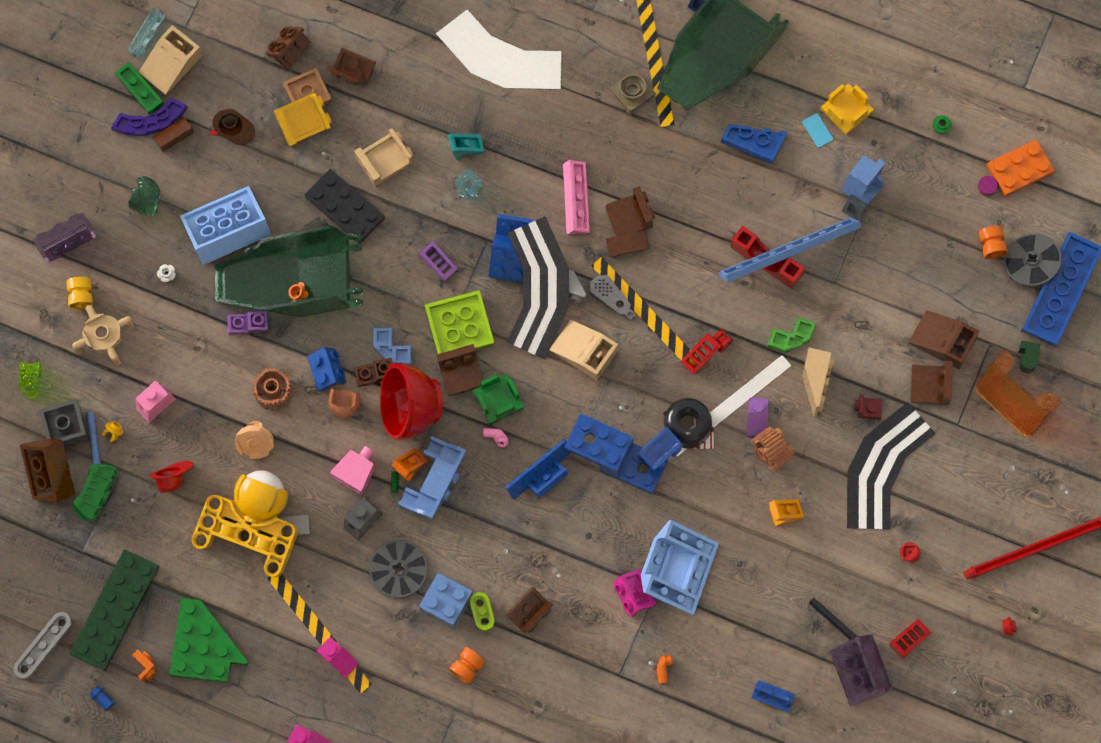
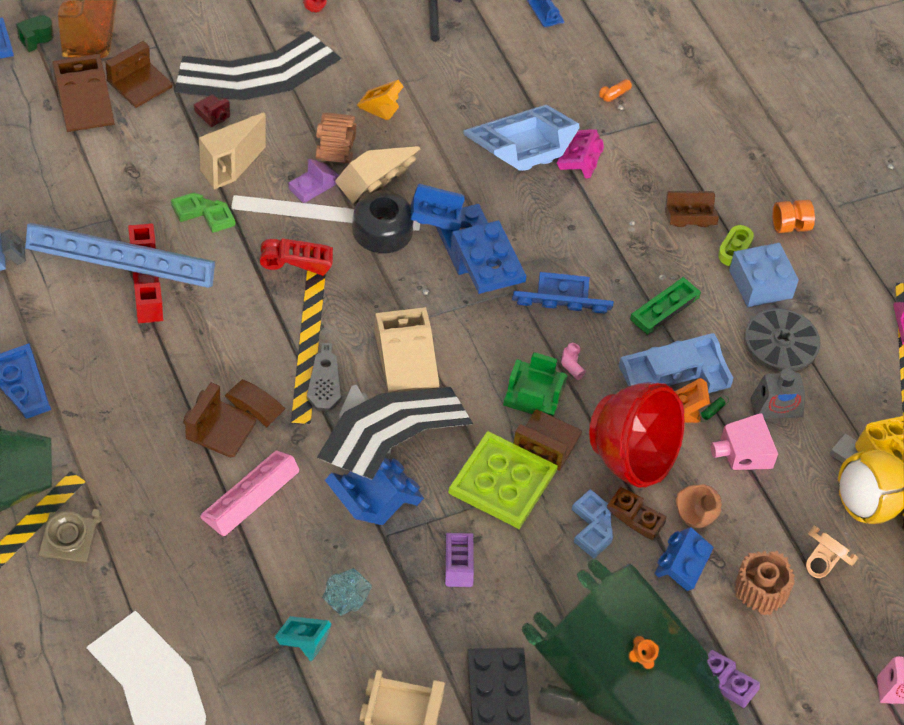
camera: 145 degrees left, 20 degrees down
(481, 525) = (665, 305): none -> green plate
(724, 445) = (374, 170): none -> tan slope

